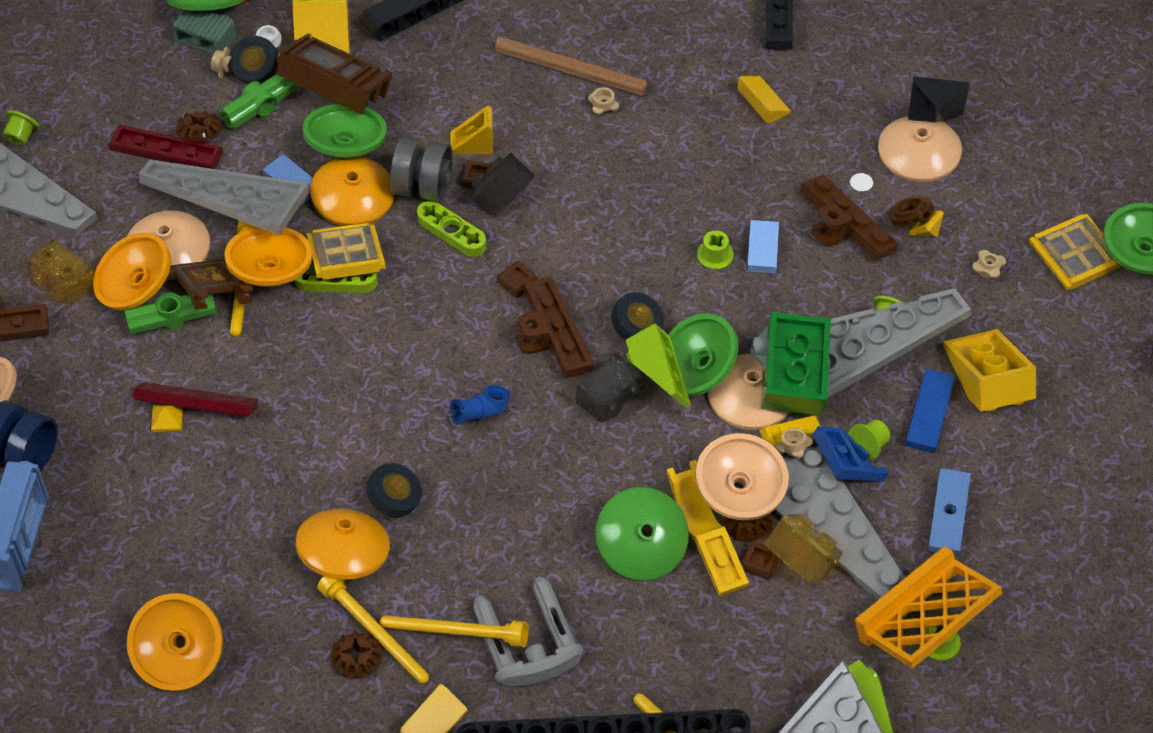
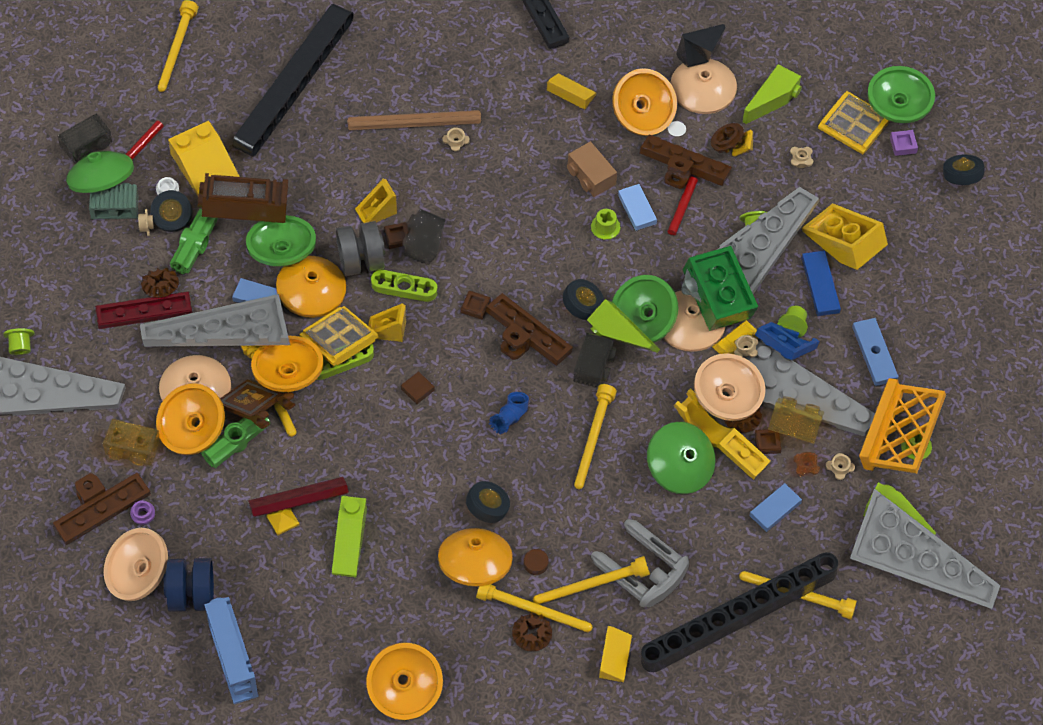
camera: 30 degrees left, 5 degrees up
(24, 342) = (139, 507): none -> medium lavender plate
(222, 462) = (349, 536): none -> lime slope
(398, 339) = (417, 387): none -> reddish brown tile
(409, 261) = (390, 323): none -> yellow slope
(409, 579) = (536, 561): none -> reddish brown tile
(600, 431) = (605, 395): none -> yellow piece
(724, 638) = (775, 507): none -> medium blue tile
(733, 186) = (591, 169): none -> medium nougat piece
(791, 596) = (806, 457): none -> clear orange plate
(816, 265) = (682, 206): none -> red bar
(832, 616) = (840, 459): none -> tan plate
(845, 122) = (654, 94): none -> light orange dish
(993, 184) = (774, 93): none -> lime slope
(1123, 294) = (903, 142): none -> medium lavender plate

